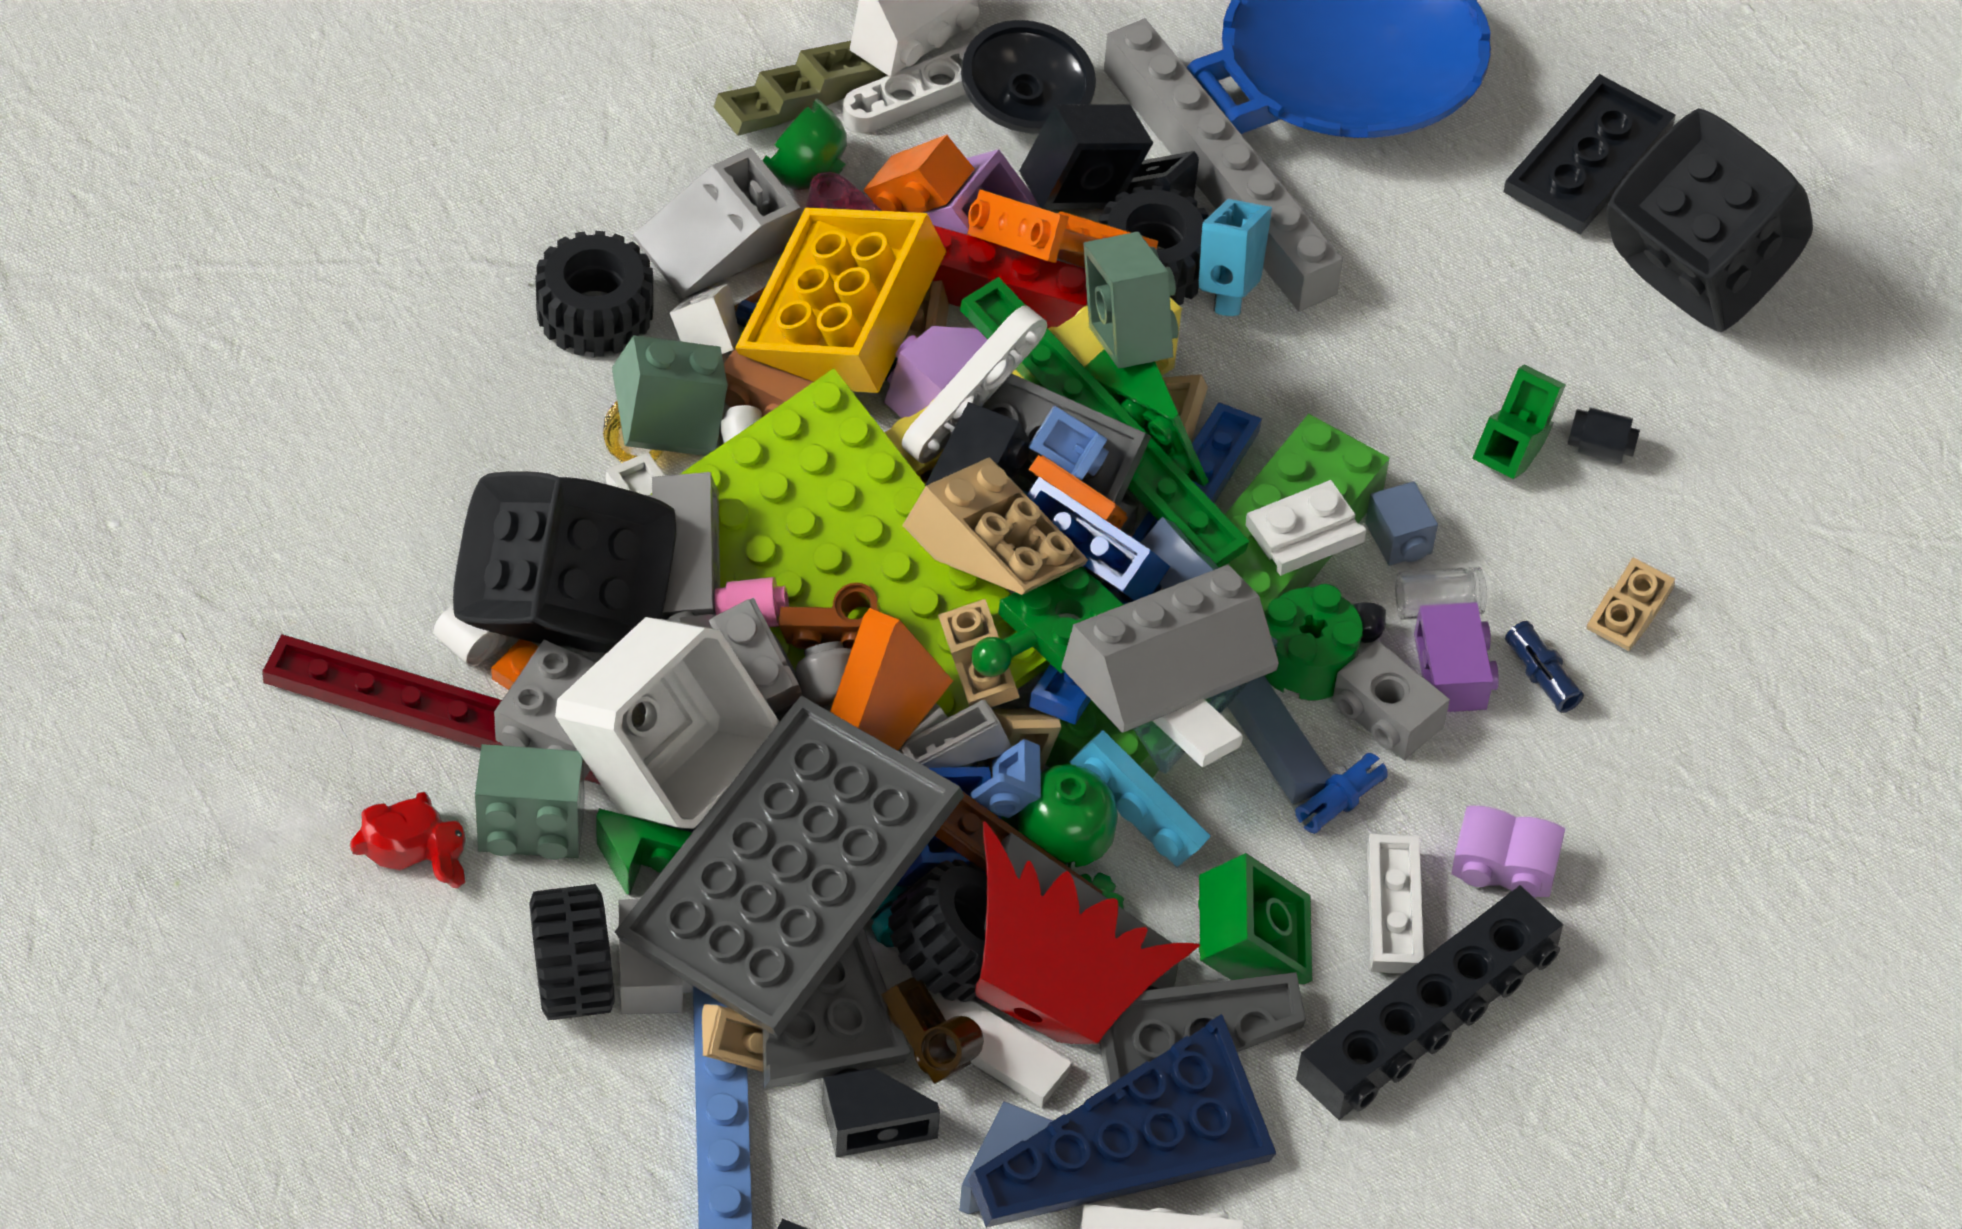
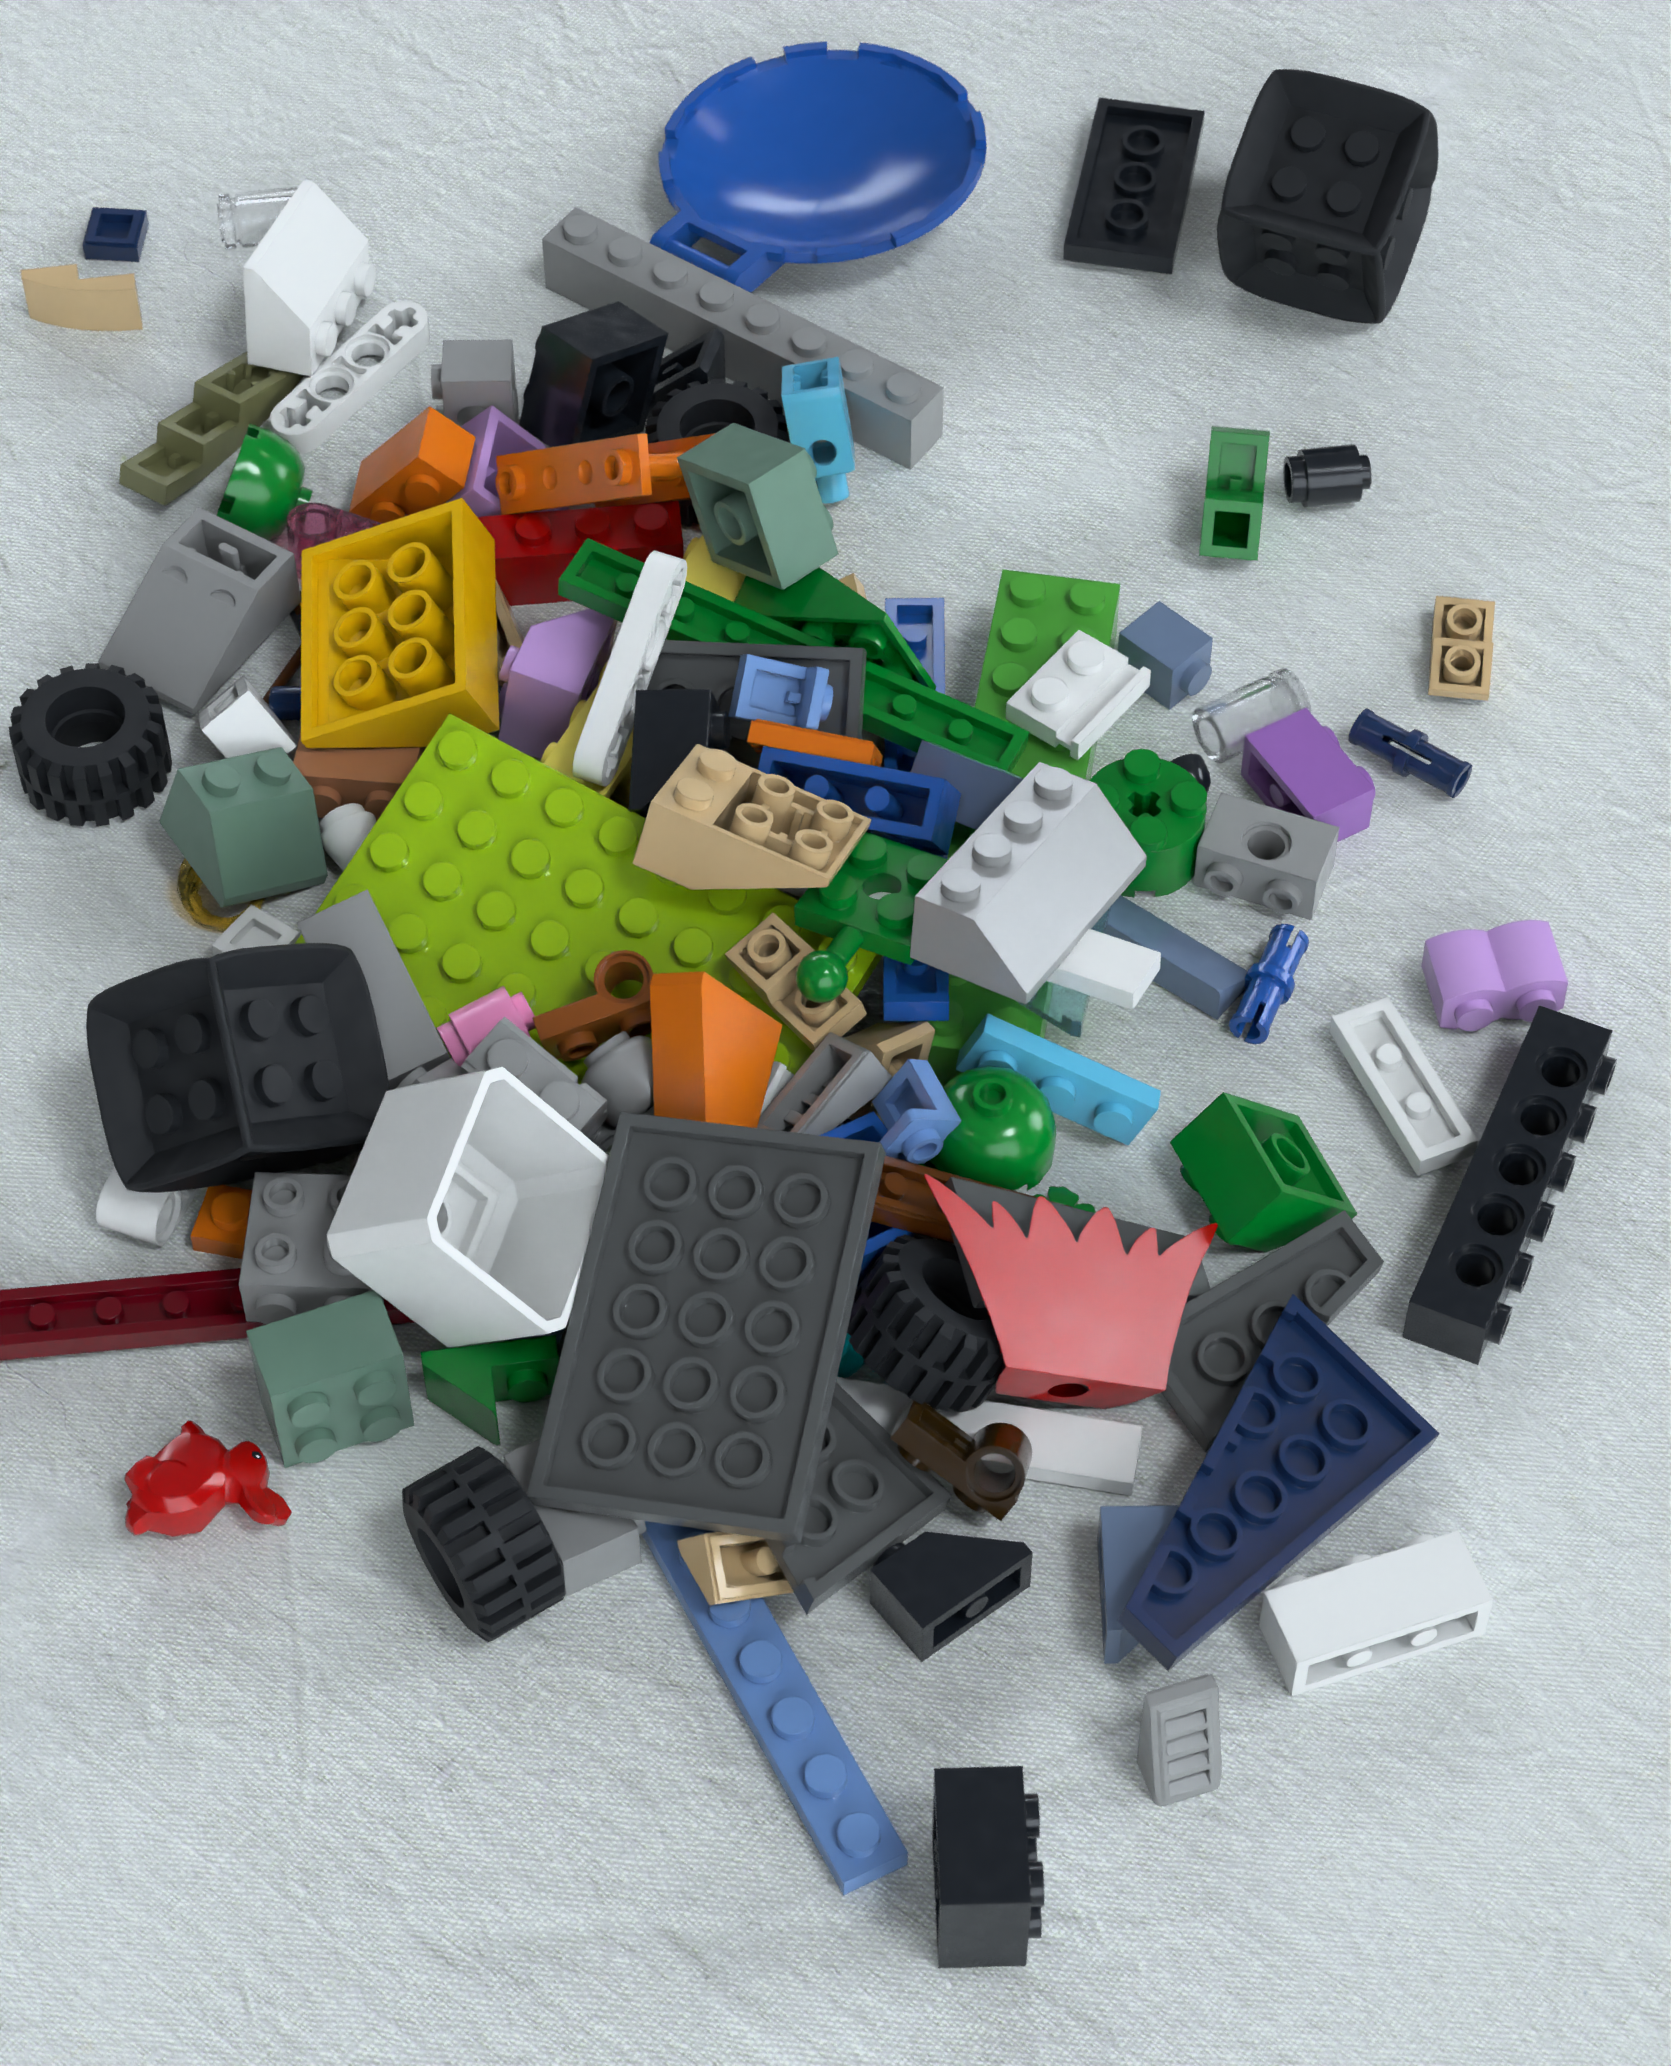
camera: 20 degrees left, 0 degrees up
(996, 124) = (474, 378): none -> light grey brick
(1029, 61) = (470, 300): black dish -> none

